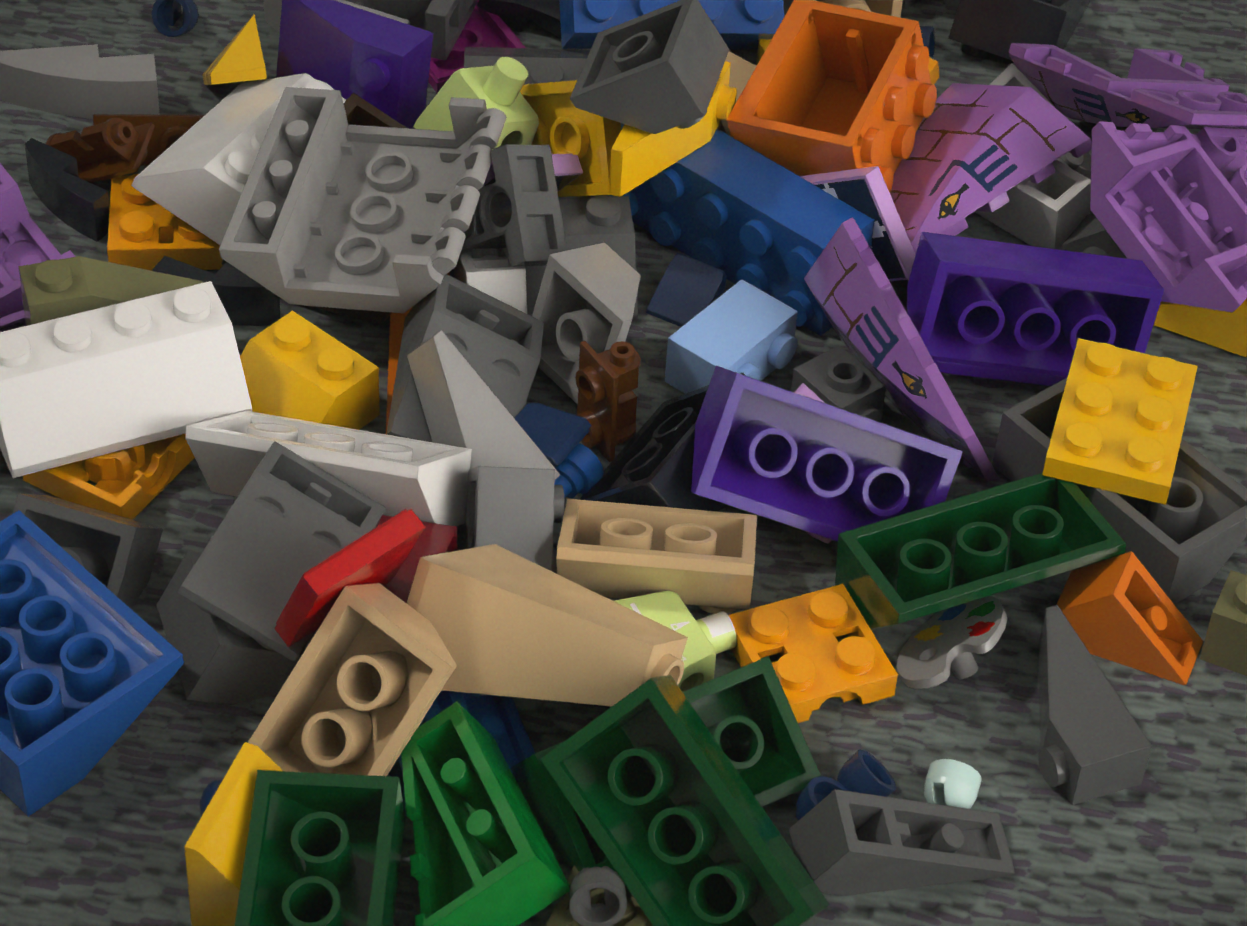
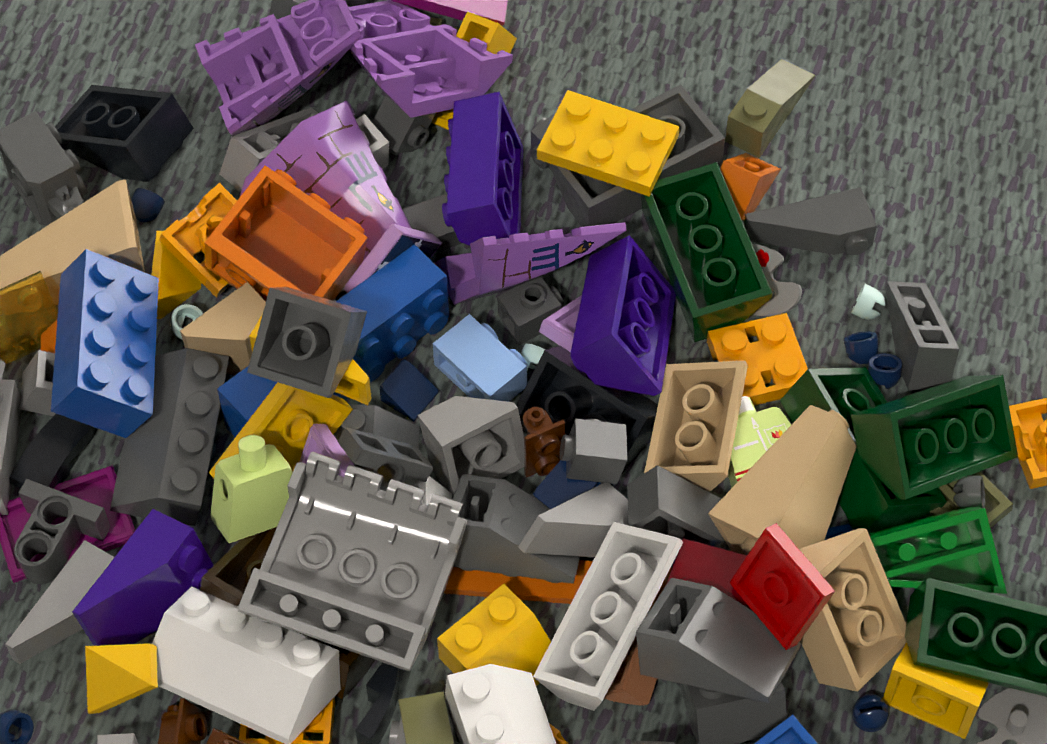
camera: 80 degrees left, 15 degrees up
(590, 434) = (595, 451): none -> brick

